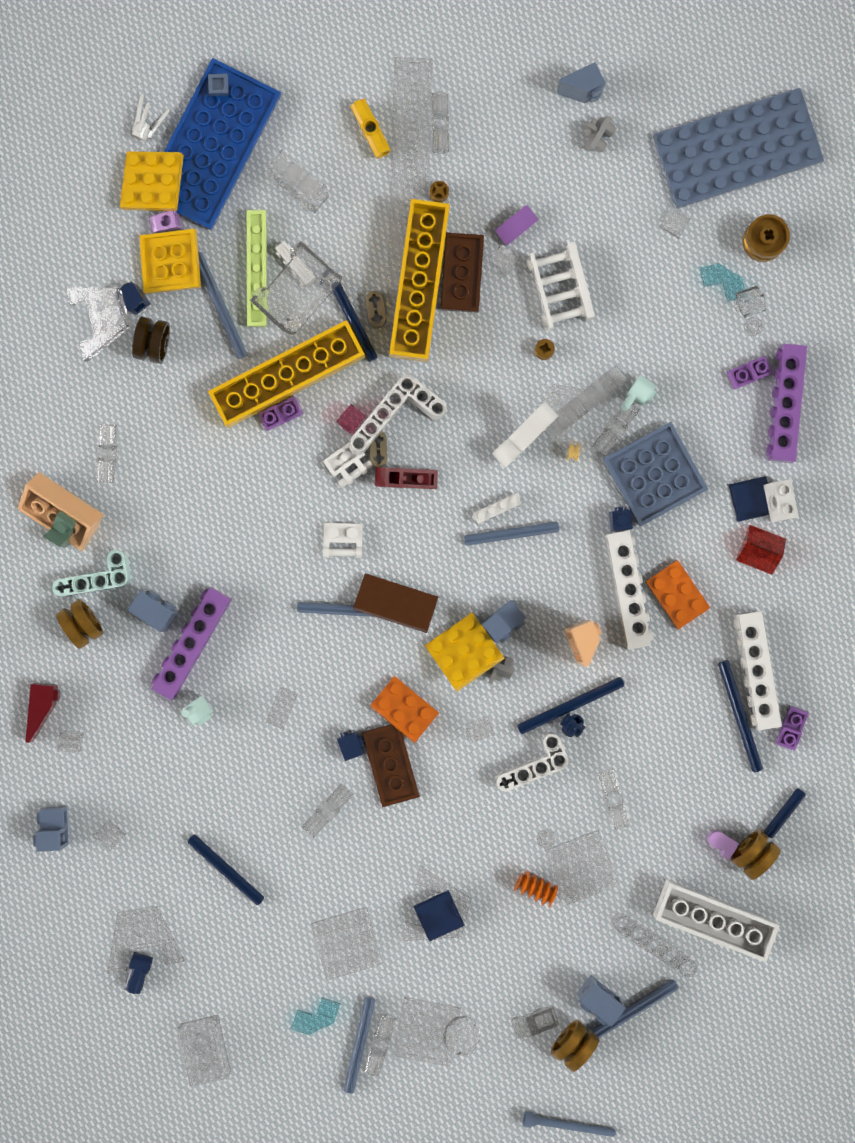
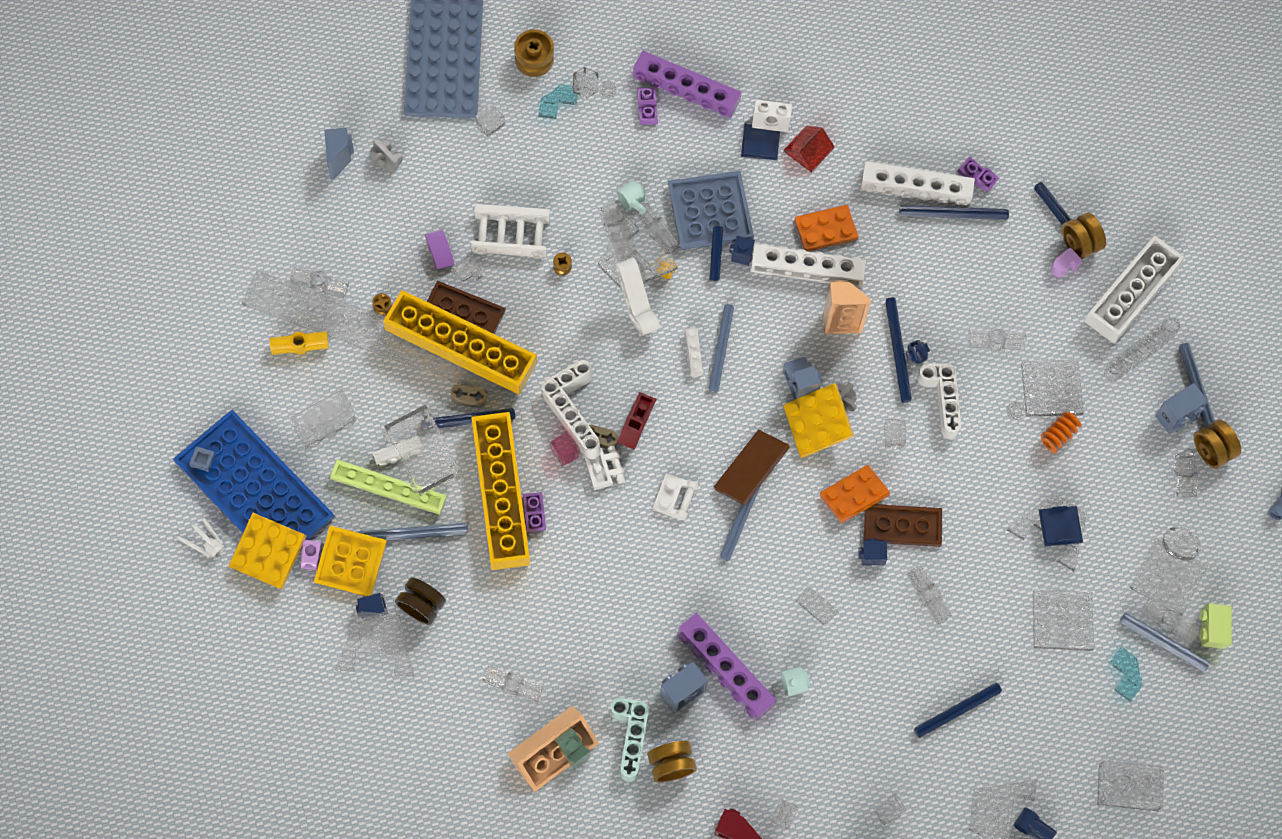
camera: 75 degrees left, 20 degrees down
(388, 1090) = (1216, 626): none -> yellowish green brick
(607, 495) = (716, 252): none -> dark blue axle

